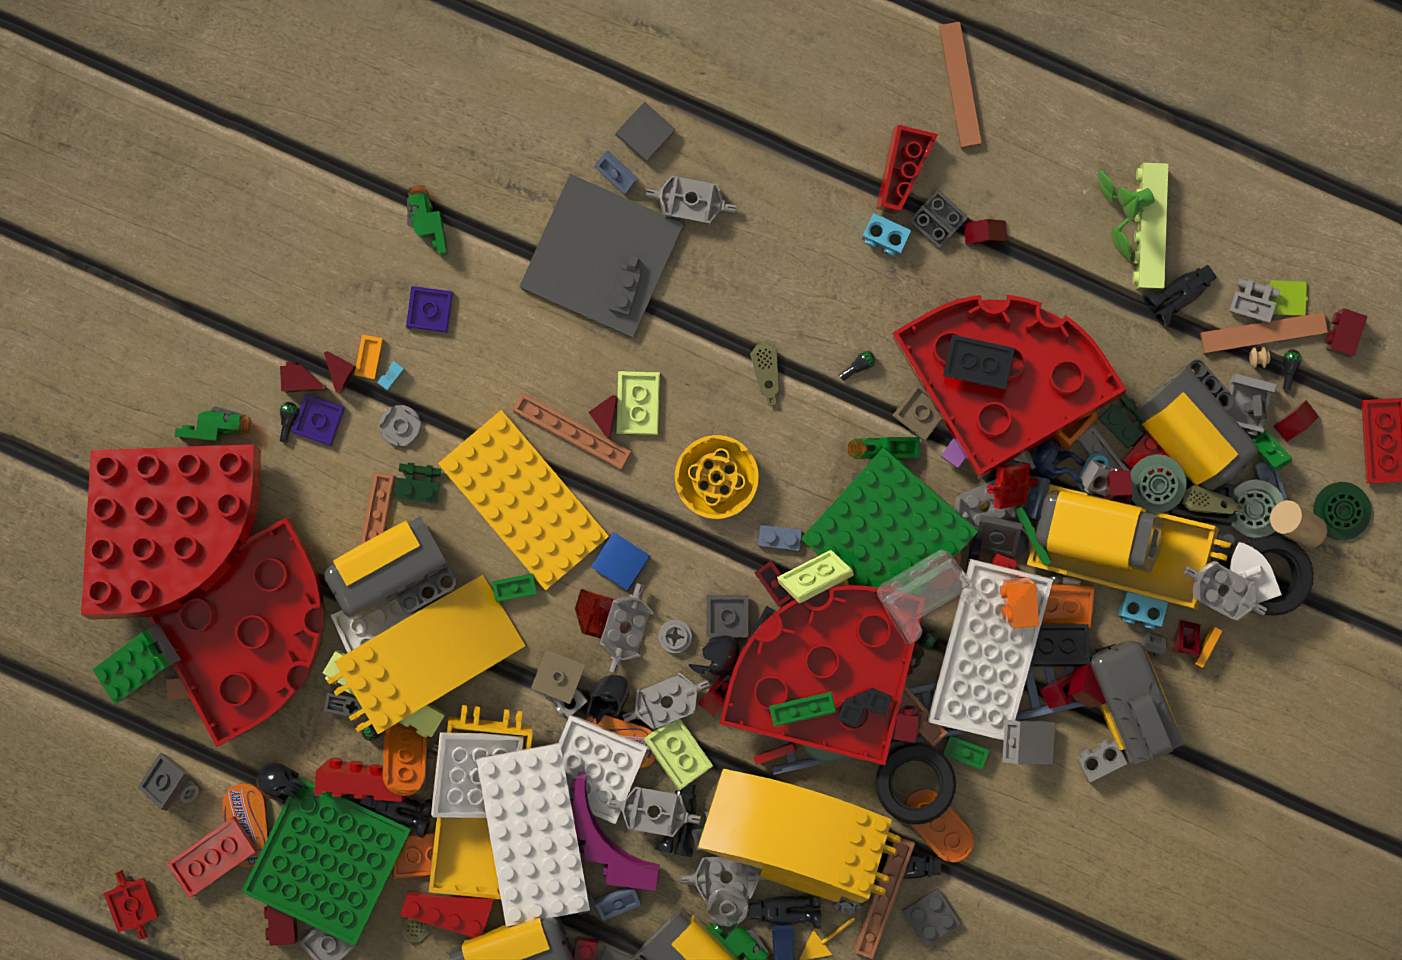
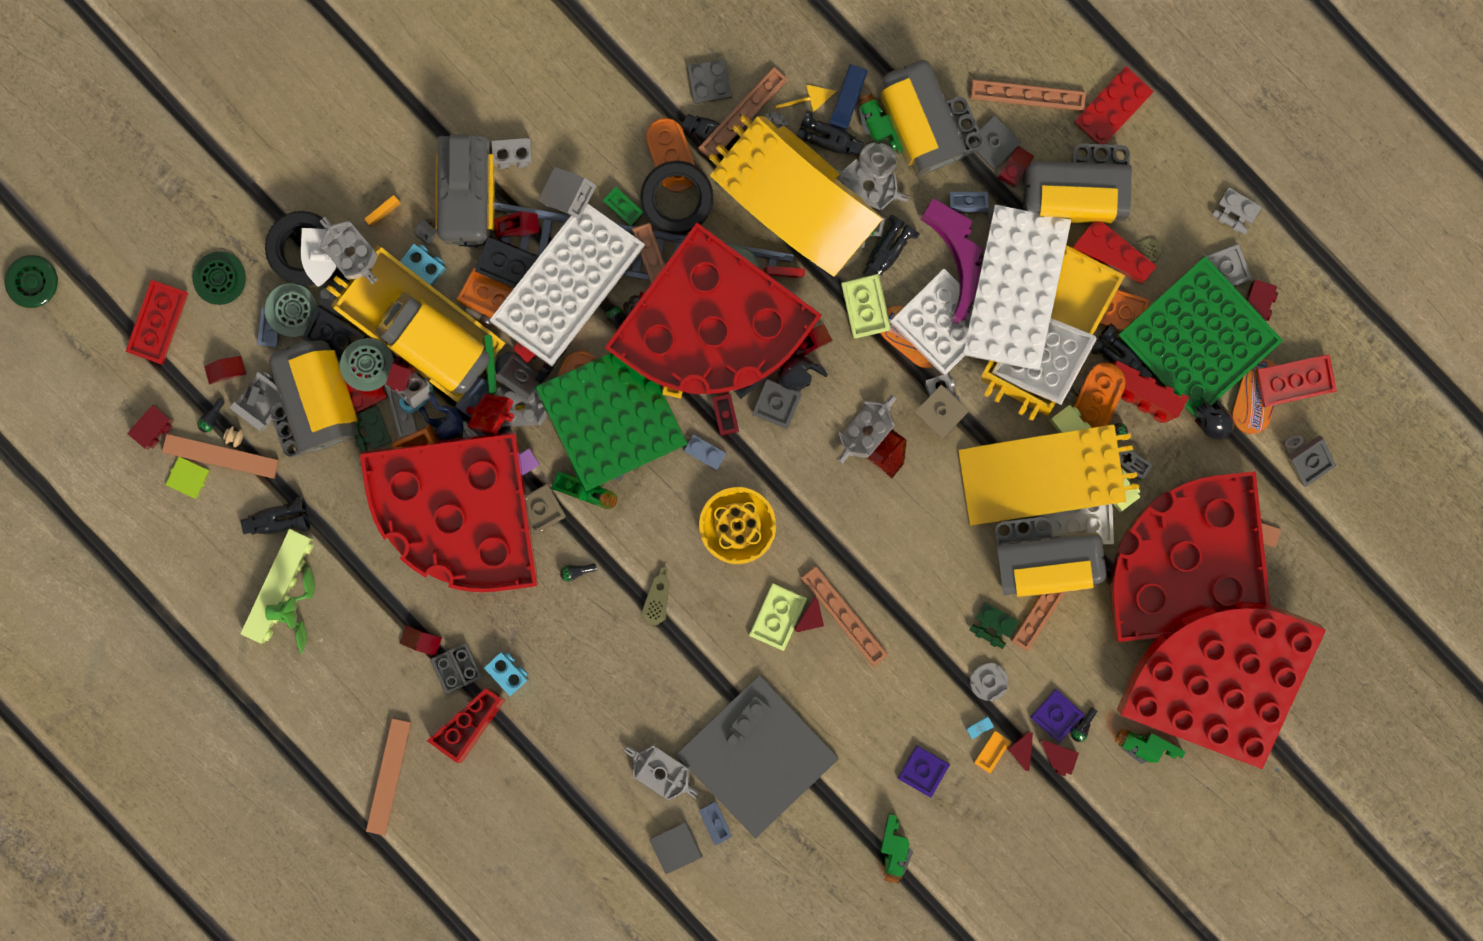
camera: 160 degrees left, 0 degrees up
(131, 904) = (1380, 369): red plate -> none
(136, 664) = (1295, 569): green piece -> none
(514, 587) = (948, 503): green plate -> none
(523, 500) = (909, 574): yellow plate -> none
(610, 695) = (904, 380): black helmet -> none
(620, 561) = (848, 487): blue slope -> none
(649, 701) = (872, 360): light grey plate -> none
(667, 823) = (891, 261): light grey plate -> none
(680, 644) = (837, 403): light grey gear -> none
(802, 709) = (746, 298): green tile -> none
(815, 576) = (689, 405): yellowish green tile -> none
(854, 706) = (687, 283): black tile -> none
(908, 724) = (662, 249): dark red brick -> none
(923, 590) = (602, 355): clear windscreen -> none
(979, 362) = (474, 529): black plate -> none
(1020, 602) = (525, 311): orange slope -> none
(1085, 687) = (499, 218): dark red slope -> none
(1187, 638) = (396, 224): dark red slope -> none
(1210, 503) = (327, 332): olive piece -> none
(1251, 306) = (219, 481): light grey plate -> none
(1271, 451) = (257, 352): green plate -> none
(1298, 524) = (262, 281): tan piece -> none

